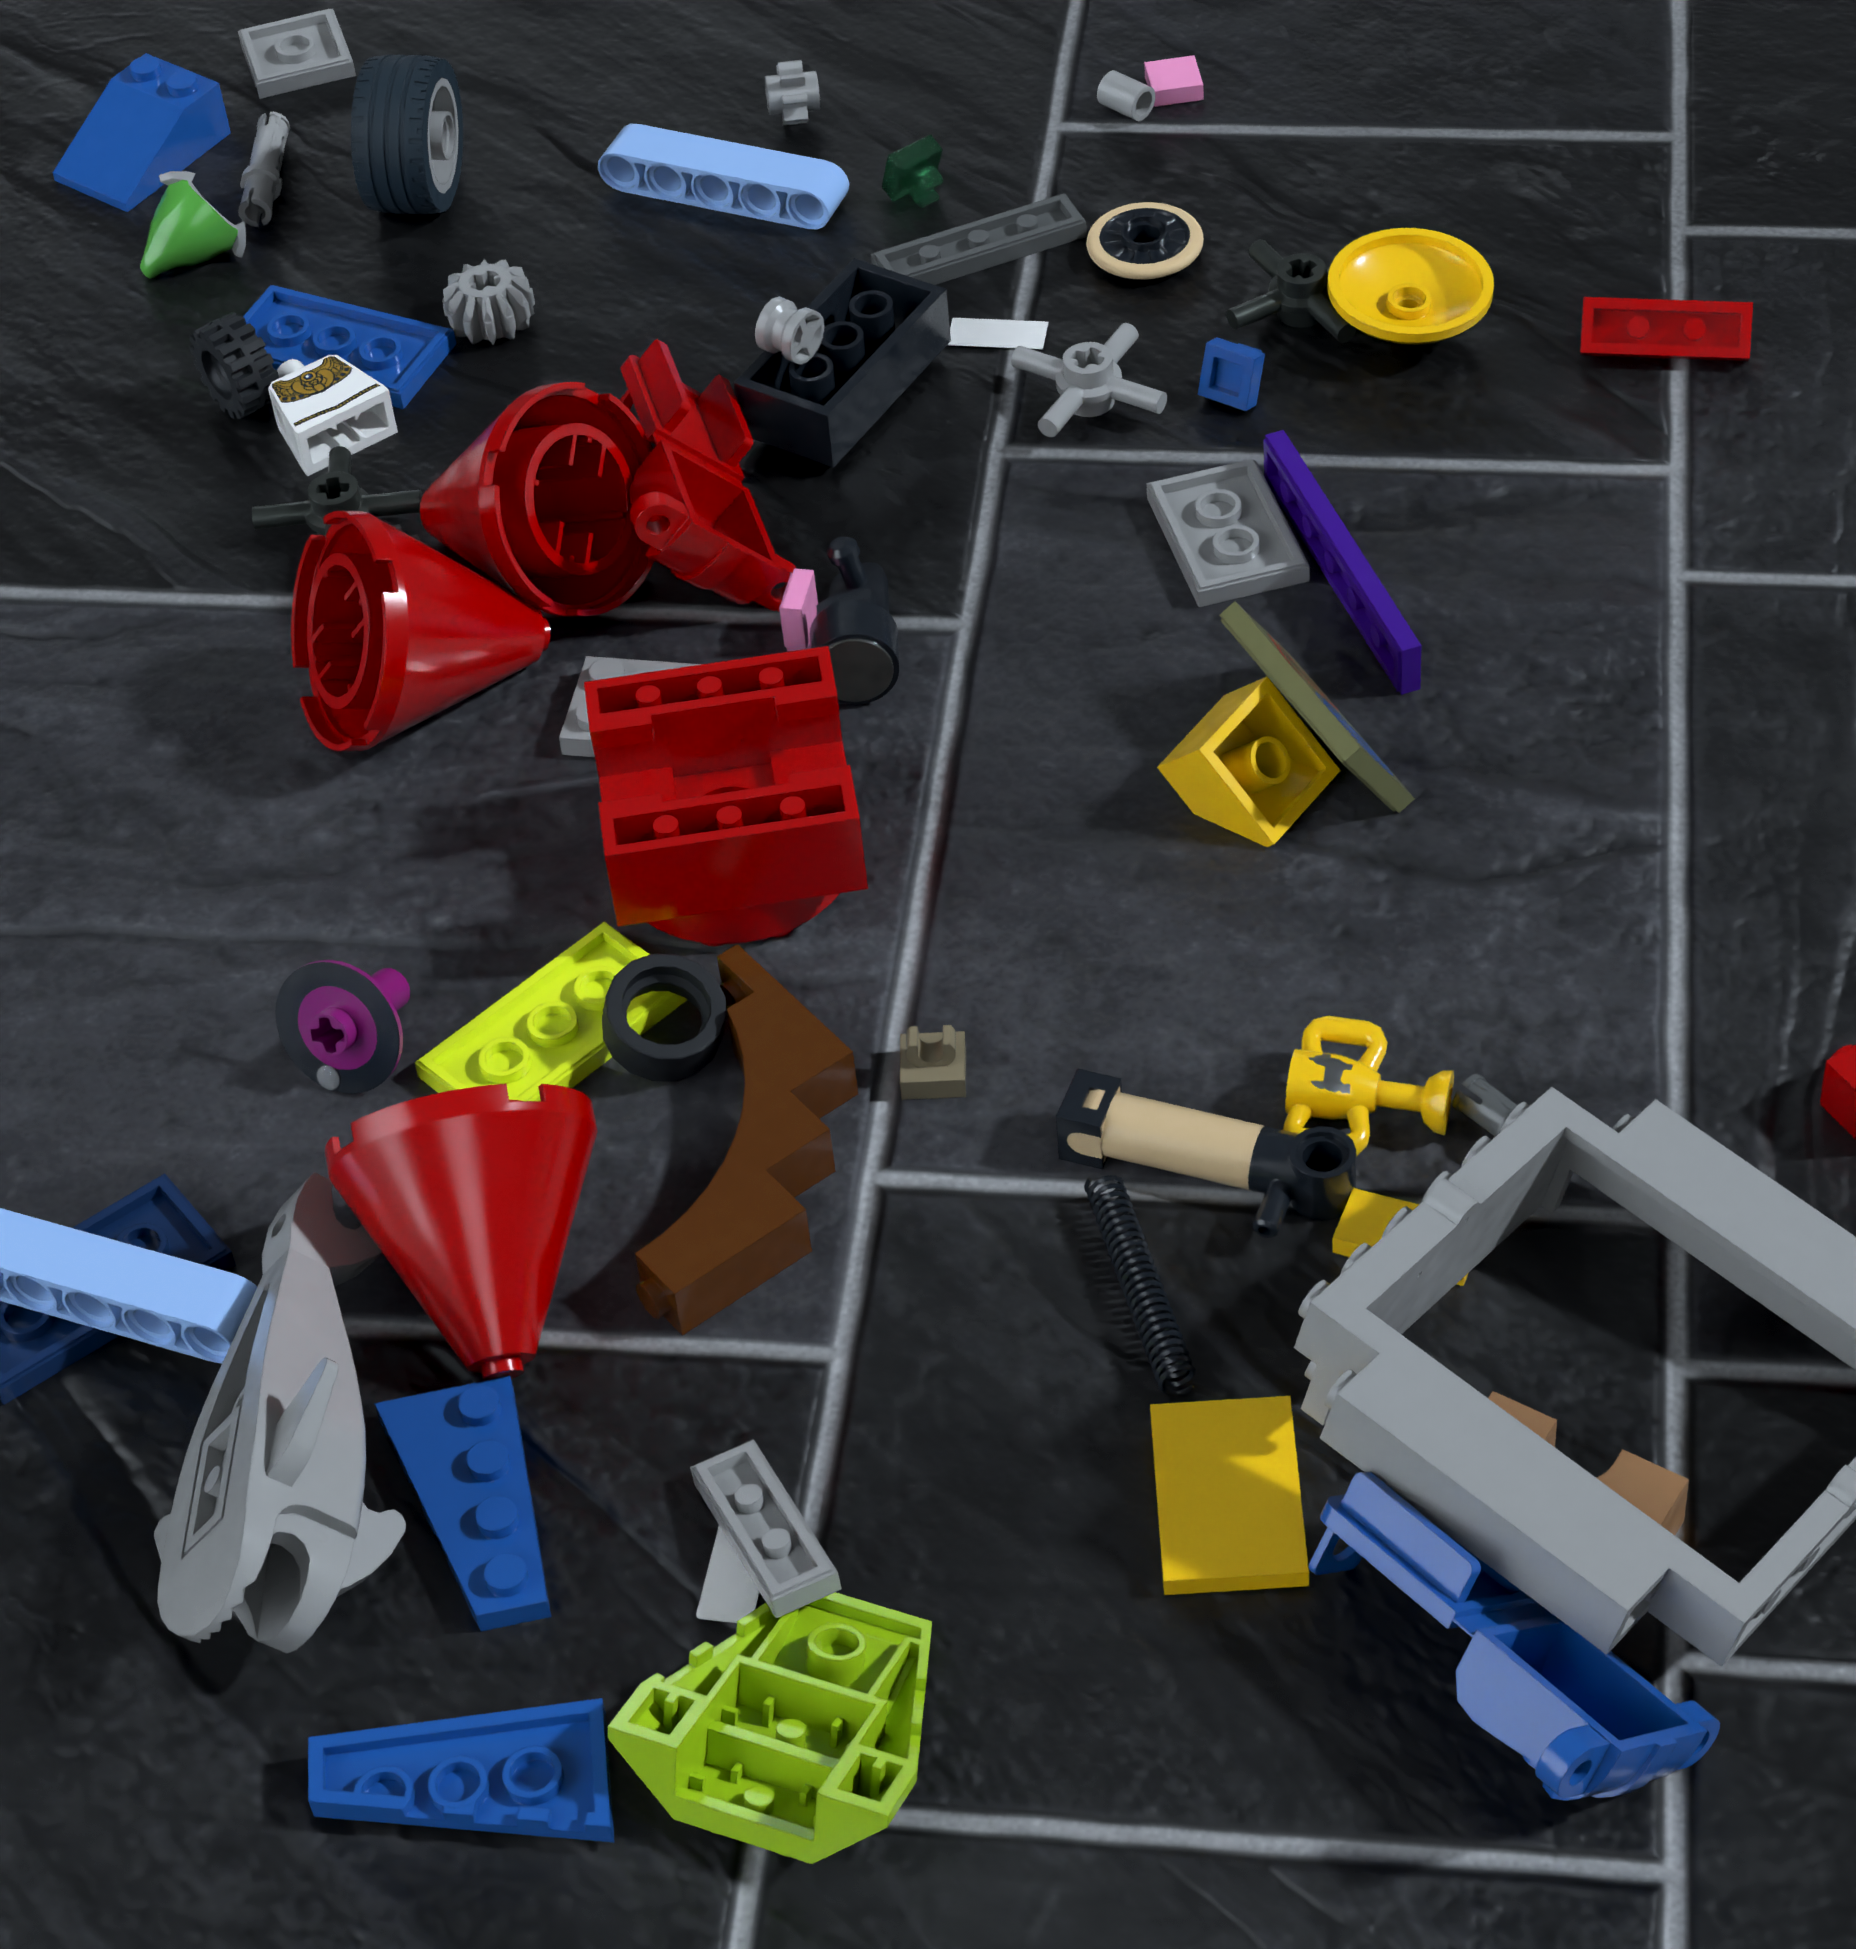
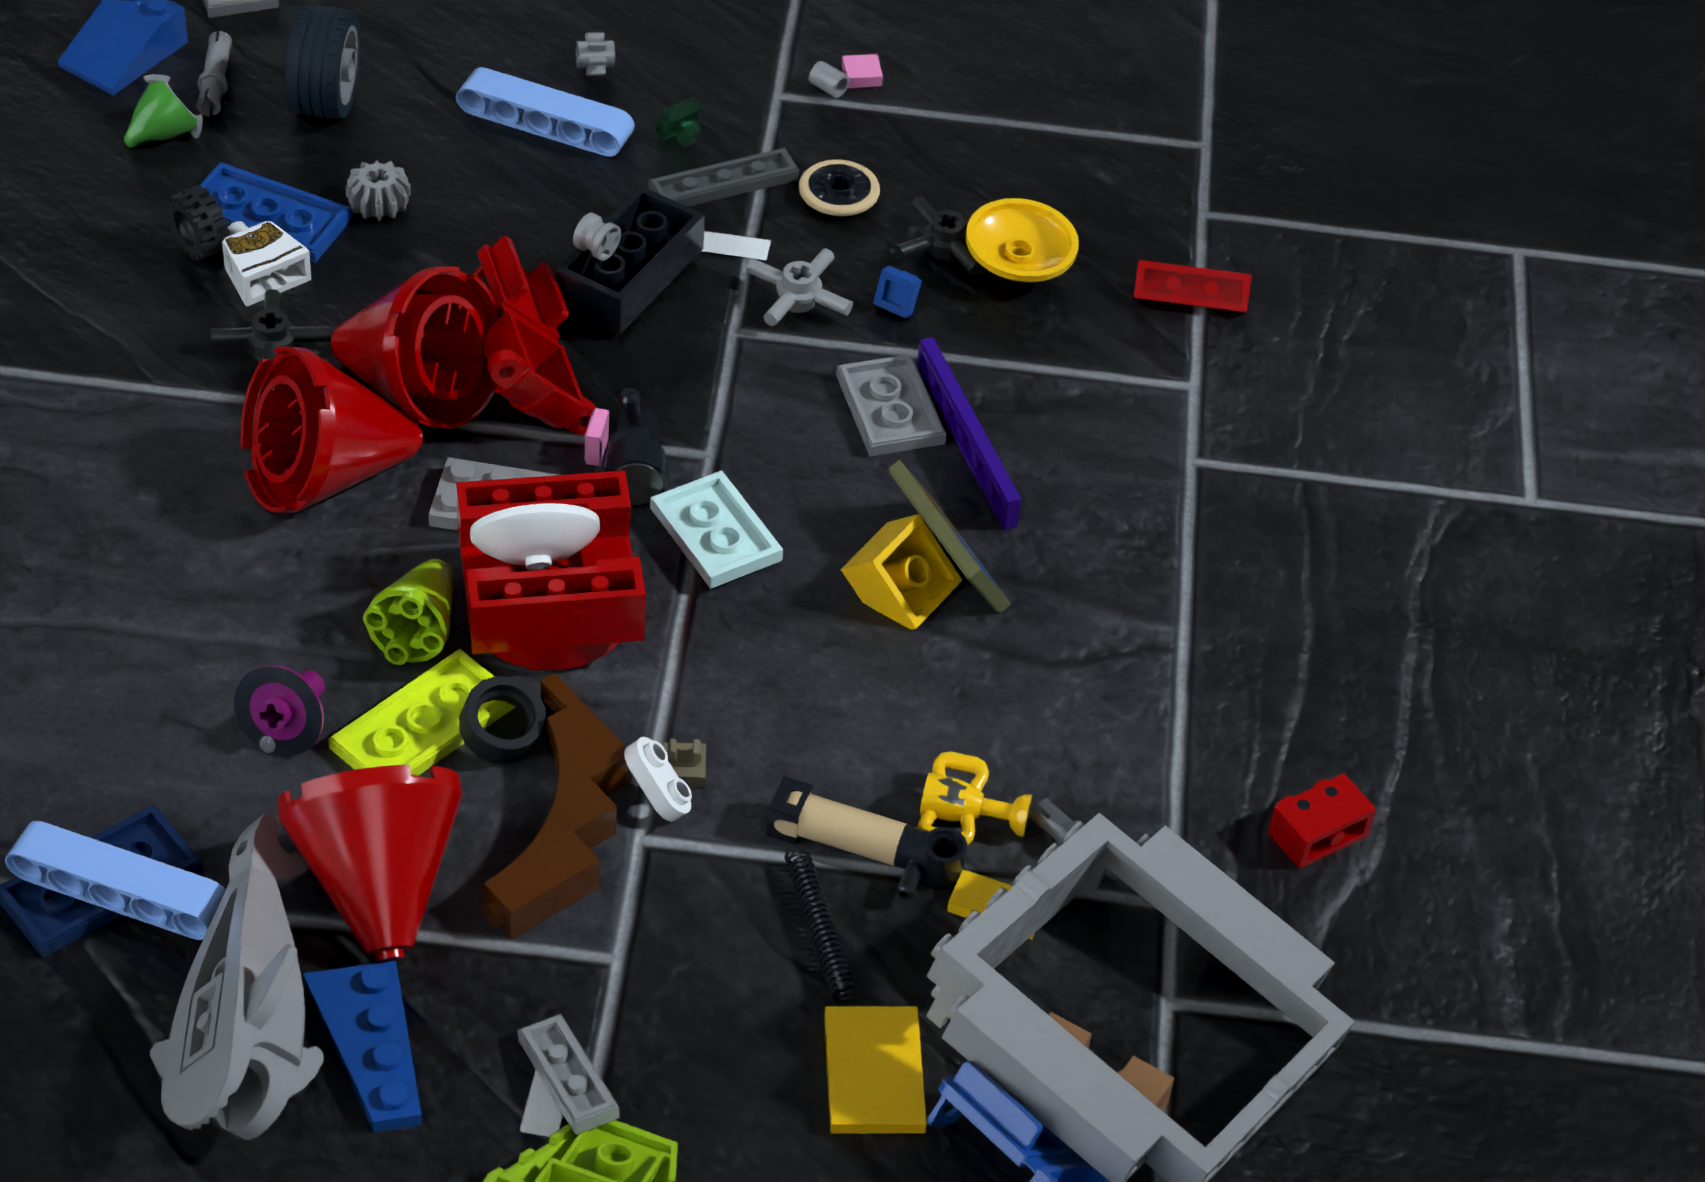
camera: 10 degrees left, 0 degrees up
(534, 876) = (413, 614): none -> lime cone
(697, 742) = (535, 533): none -> white dish
(892, 1086) = (657, 778): none -> white plate
(975, 725) = (716, 529): none -> light aqua plate

